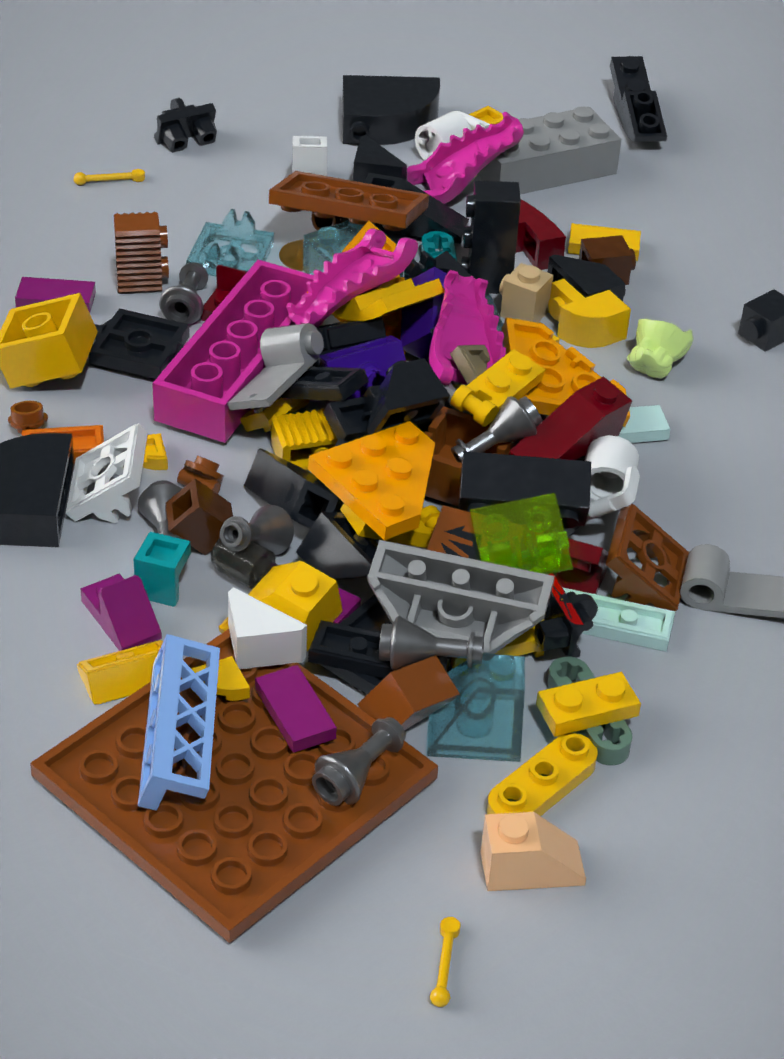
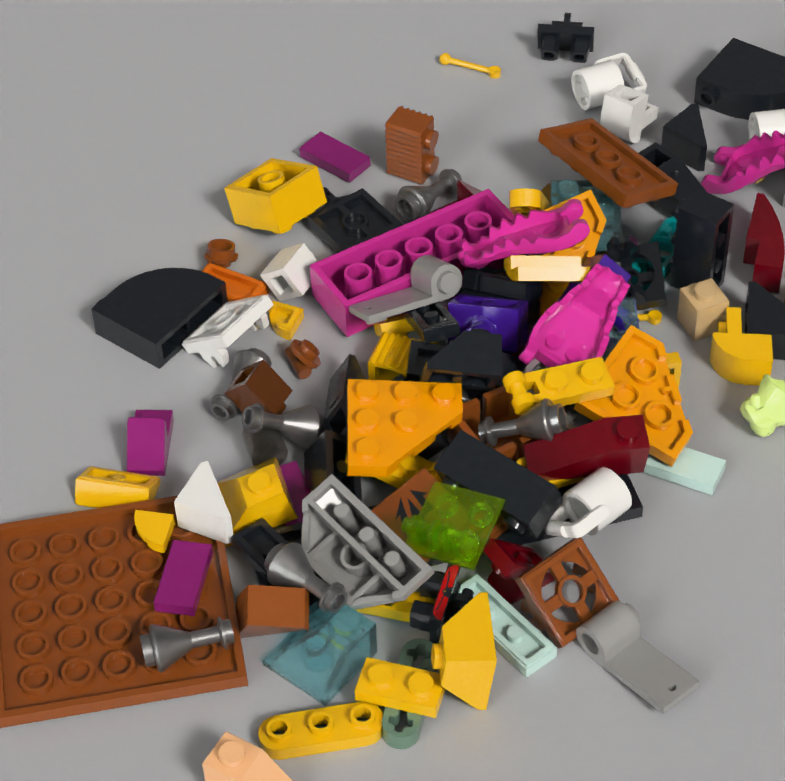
camera: 40 degrees right, 5 degrees up
(124, 401) = (289, 272): none -> white brick
(159, 566) = (195, 415): teal panel -> none
(163, 720) = (86, 537): light blue fence -> none
(236, 233) = (523, 155): clear light blue piece -> none
(259, 147) = (595, 81): none -> white piece
(314, 253) = (526, 199): none -> yellow beam
(471, 360) = (561, 351): dark tan tile -> none
(634, 636) = (467, 653): none -> yellow slope

